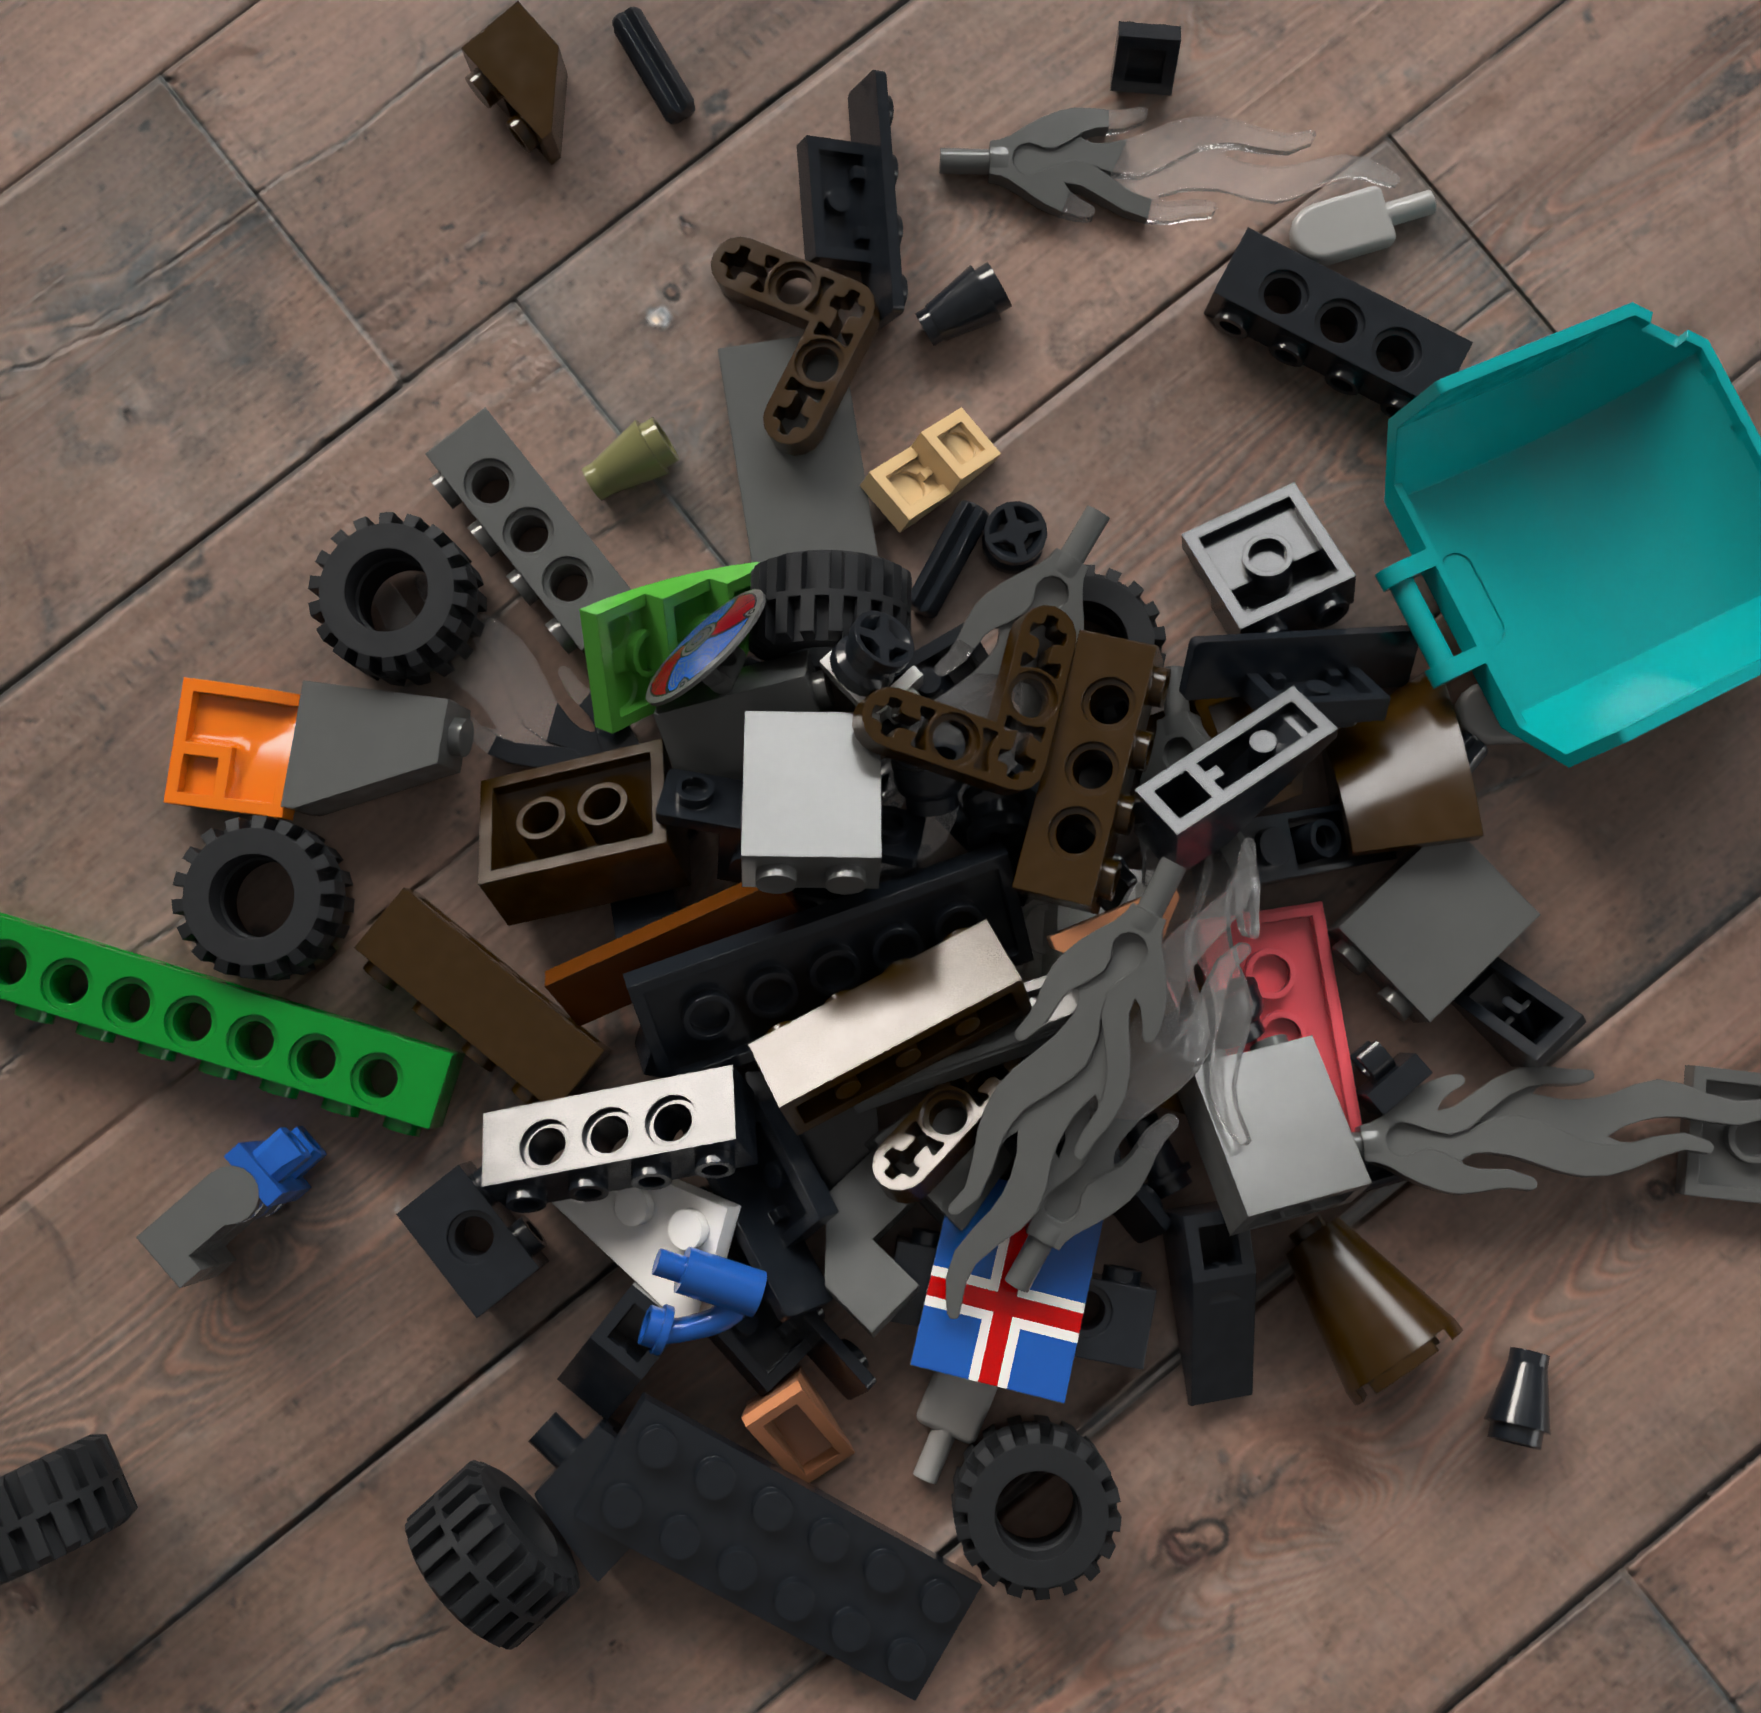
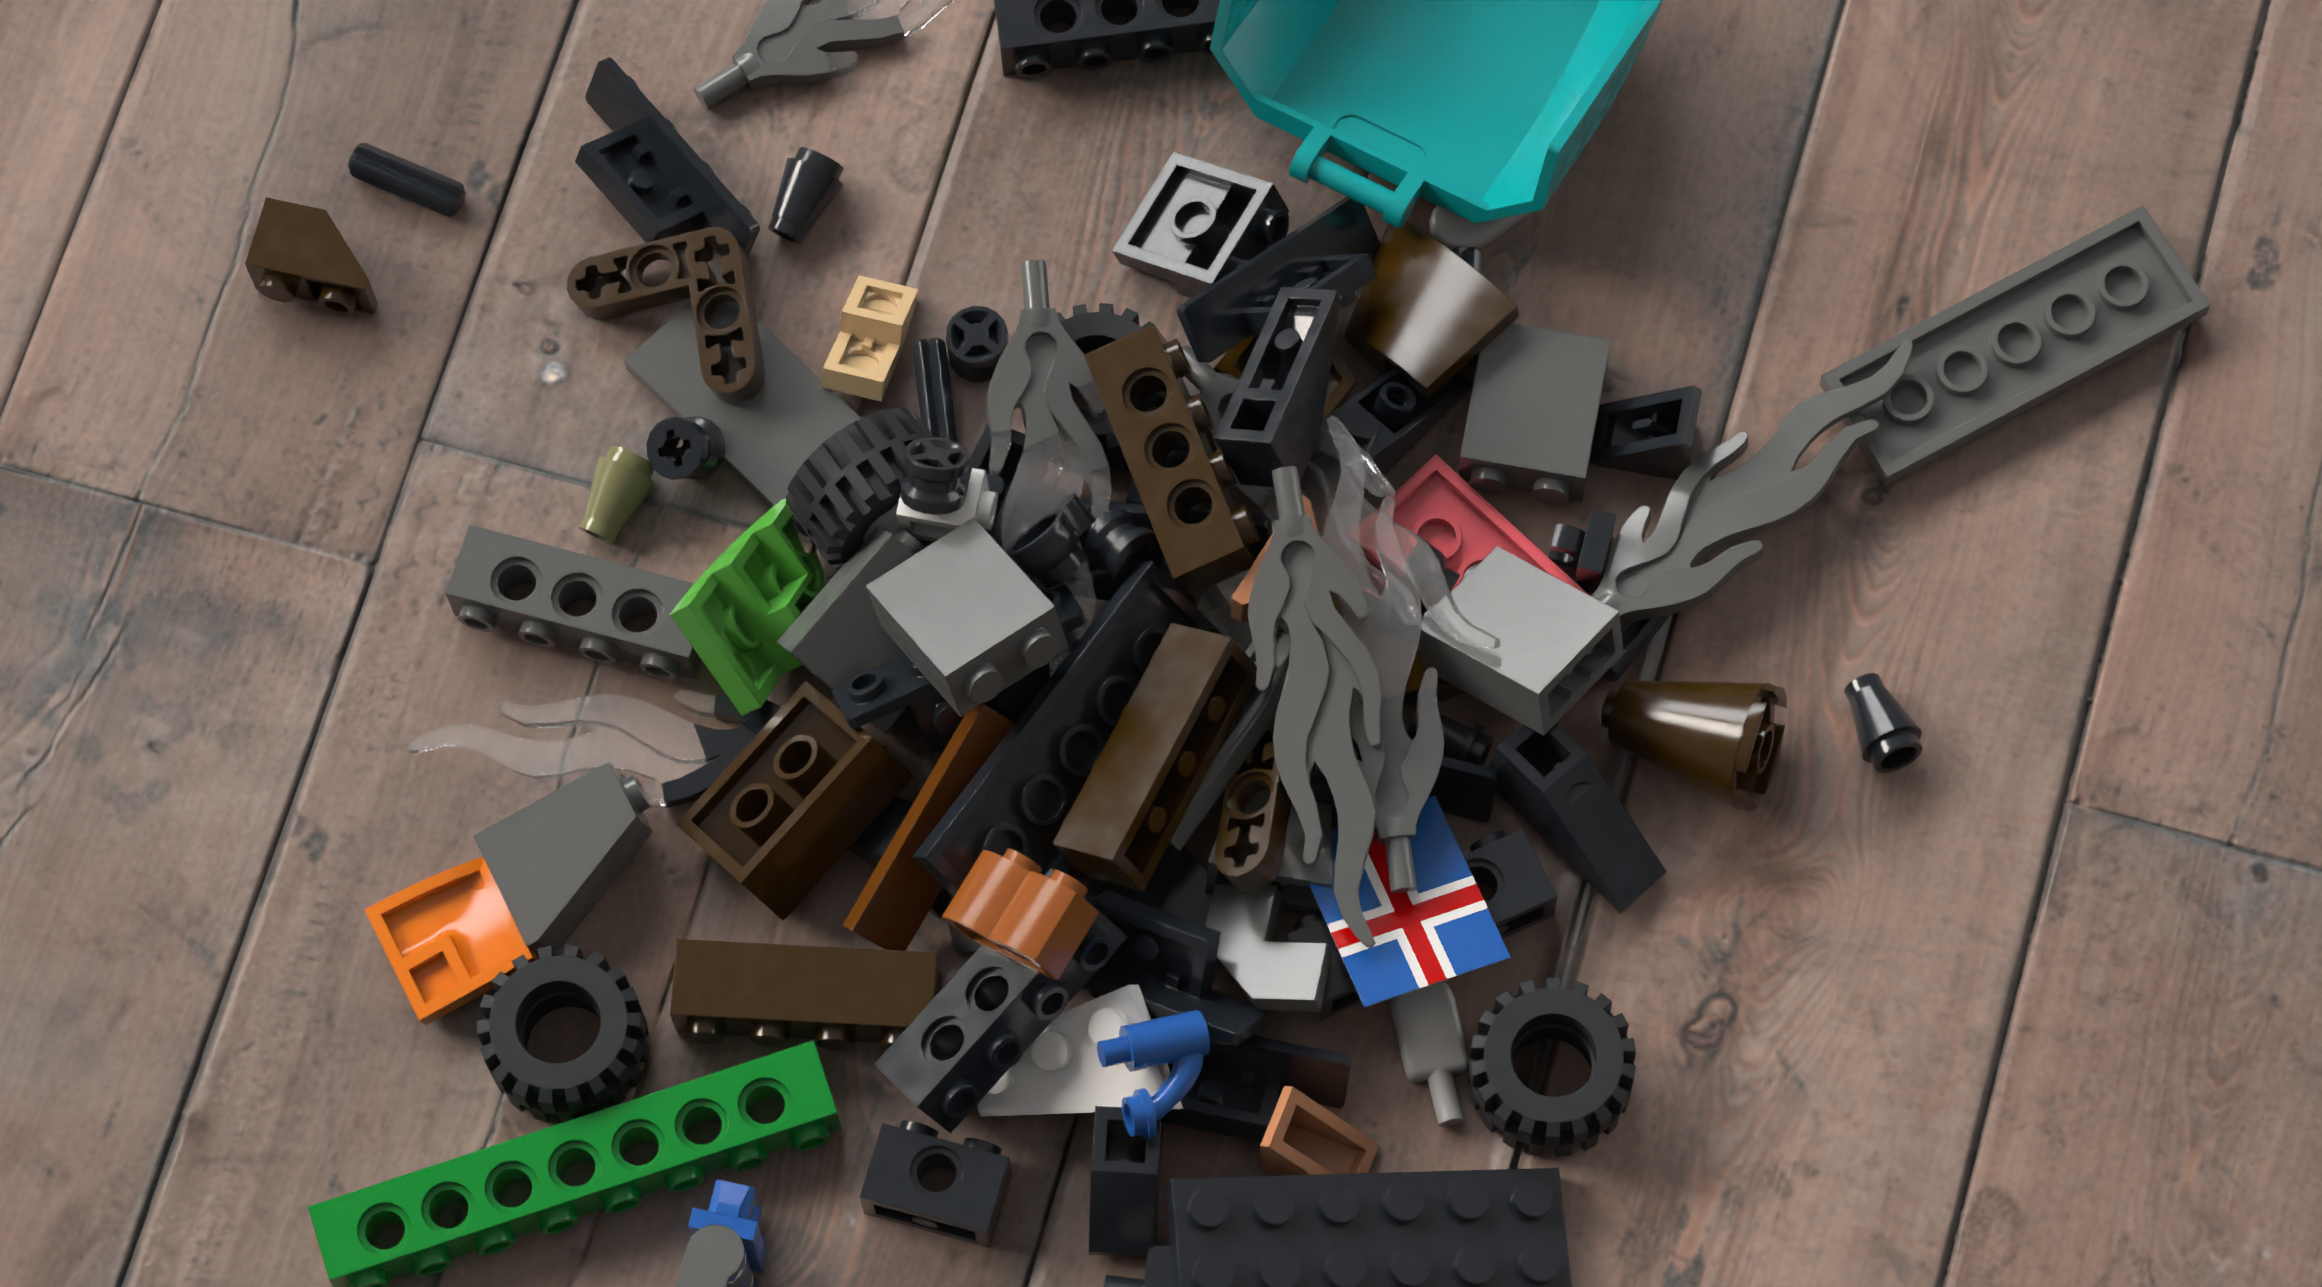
camera: 30 degrees left, 15 degrees down
(359, 569) = (481, 680): black tyre -> none
(671, 1098) = (1022, 912): none -> dark orange brick
(709, 651) = (799, 571): shield -> none
(724, 453) = (697, 457): none -> black wheel
(983, 737) = (1067, 478): dark brown beam -> none

